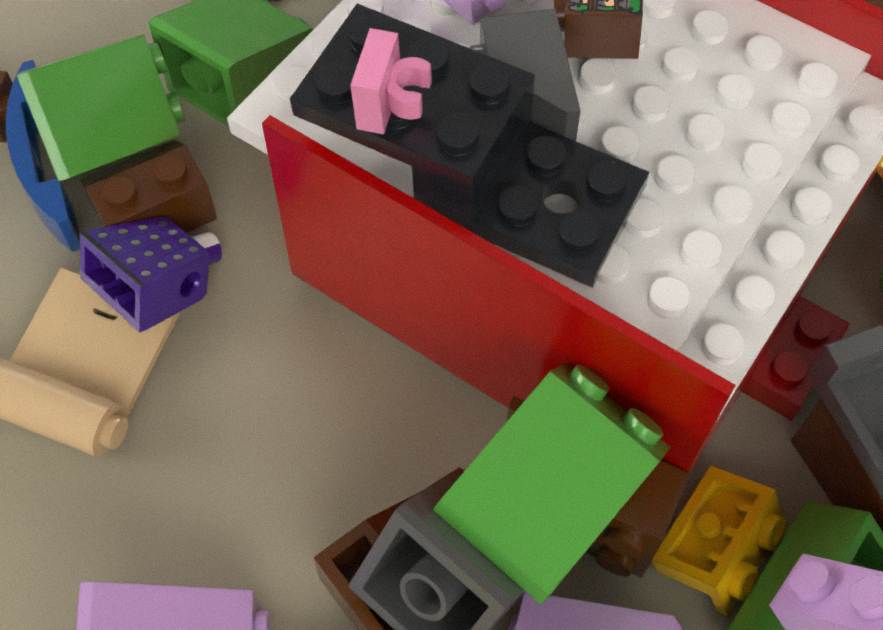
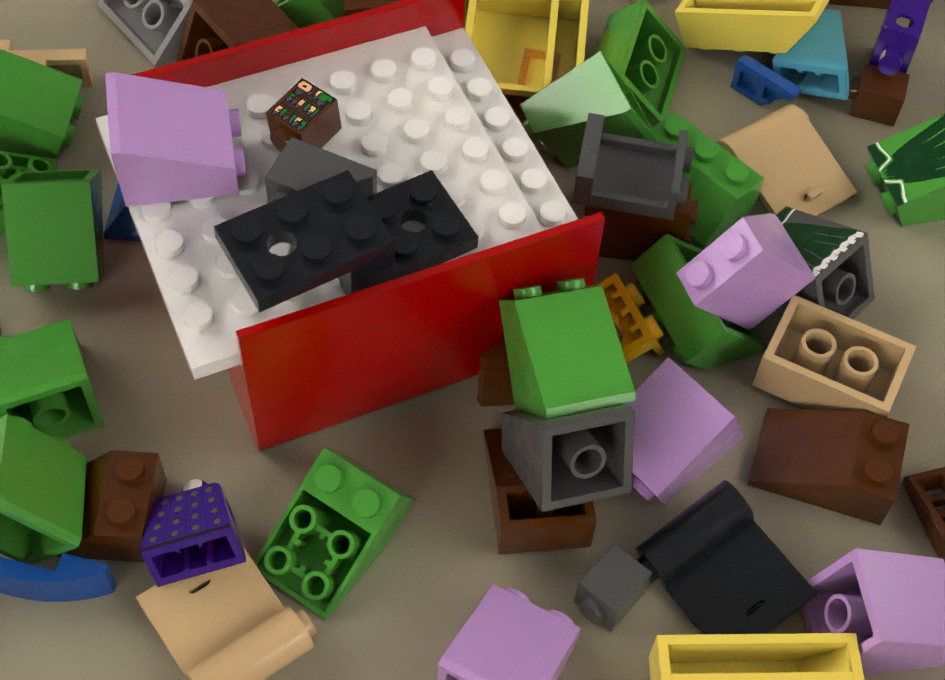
camera: 60 degrees left, 5 degrees down
(244, 394) = (332, 531): none -> bright green slope
(380, 83) = (309, 239): bright pink tile -> none

